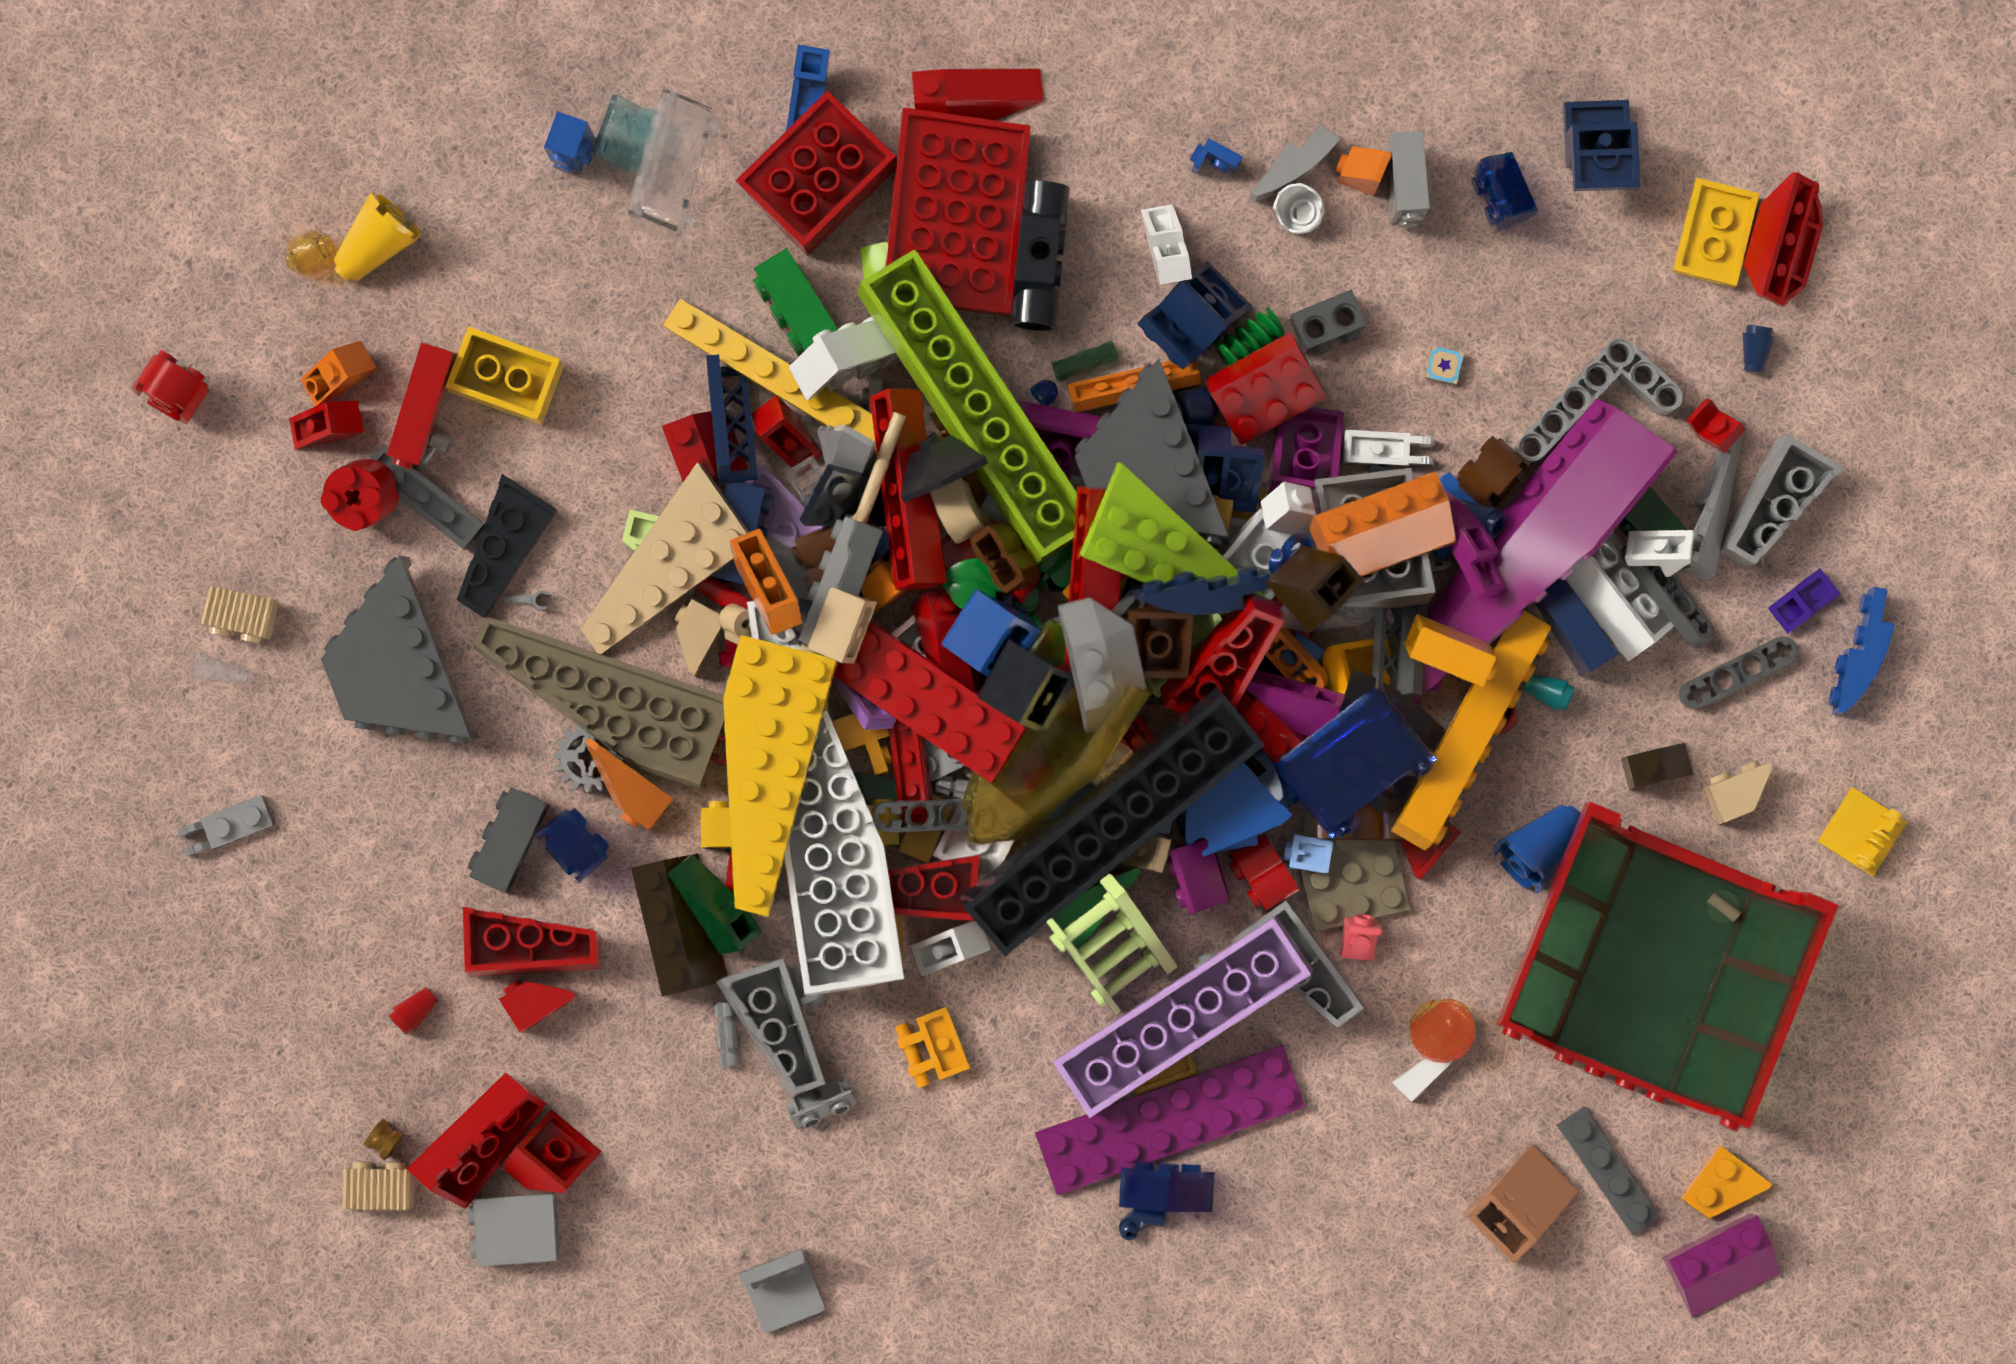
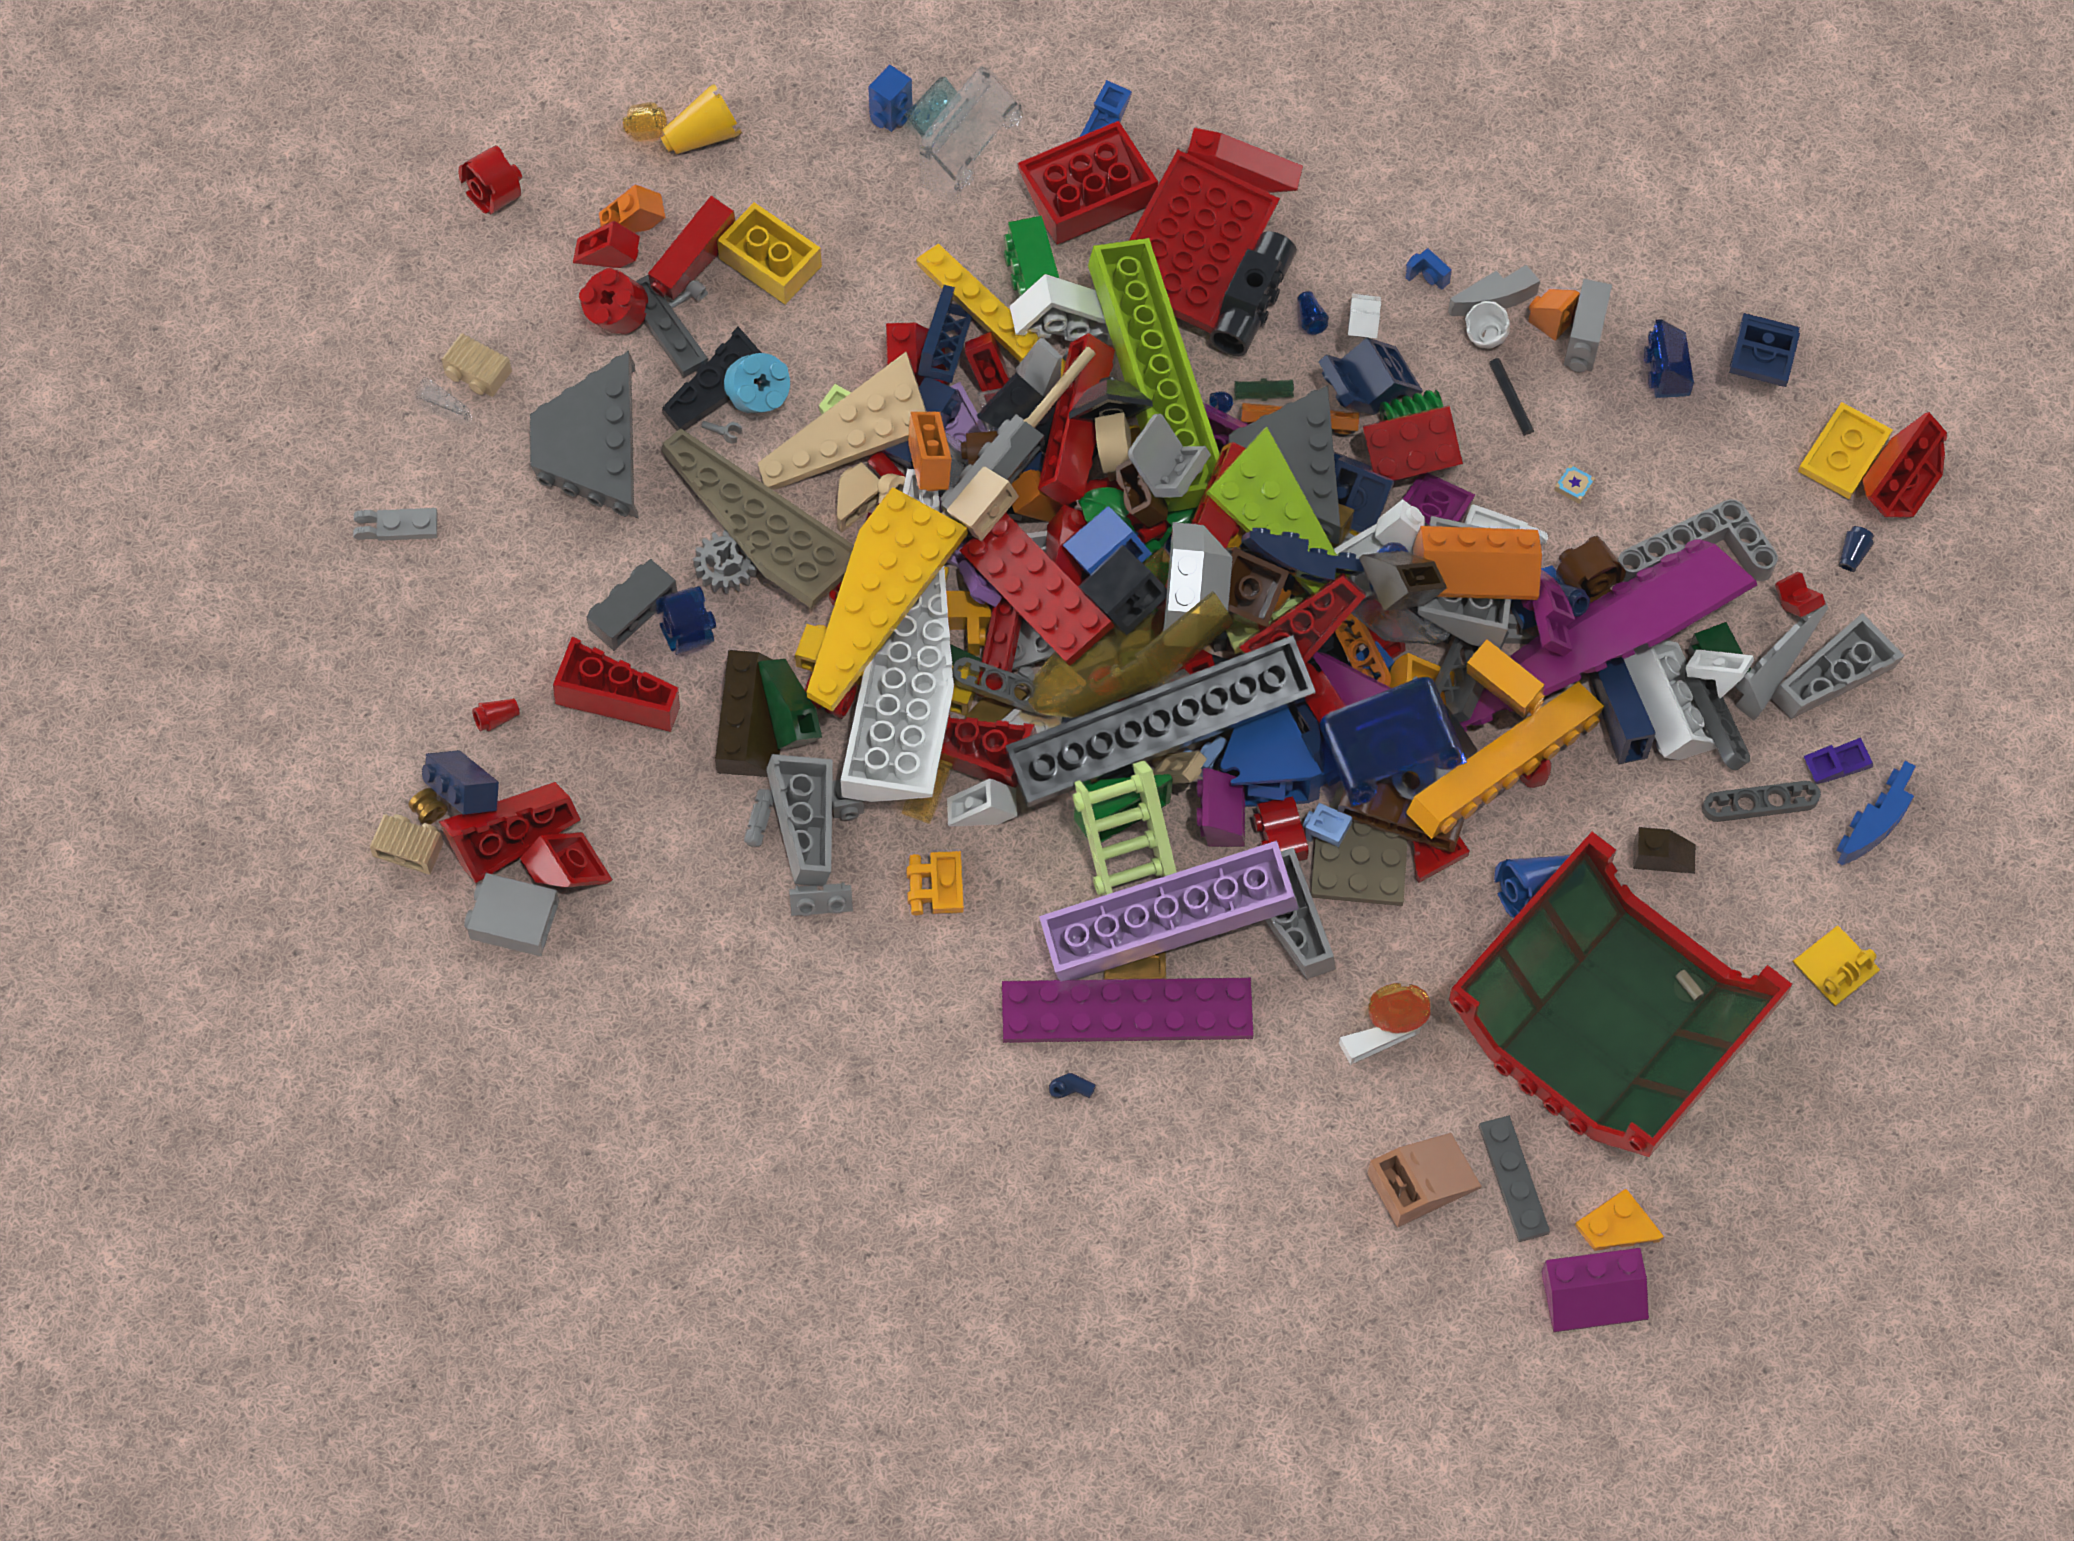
camera: 20 degrees right, 20 degrees down
(410, 1114) = (461, 782): none -> dark blue brick
(533, 1002) = (604, 738): red slope -> none
(553, 528) = (773, 383): none -> medium azure brick
(629, 790) = (750, 589): orange slope -> none
(782, 1290) = (728, 1037): light grey bracket -> none
(1027, 530) = (1164, 461): none -> light grey bracket
(1107, 252) = (1312, 315): none -> clear blue cone
(1166, 1187) = (1106, 1057): clear blue brick -> none
(1197, 406) = (1350, 445): dark blue head -> none
(1324, 315) = (1483, 412): dark grey brick -> none
(1347, 281) = (1511, 396): none -> black bar
(1360, 937) = (1350, 909): coral bracket -> none
(1550, 691) = (1587, 764): teal cone -> none
(1737, 794) = (1730, 895): tan slope -> none

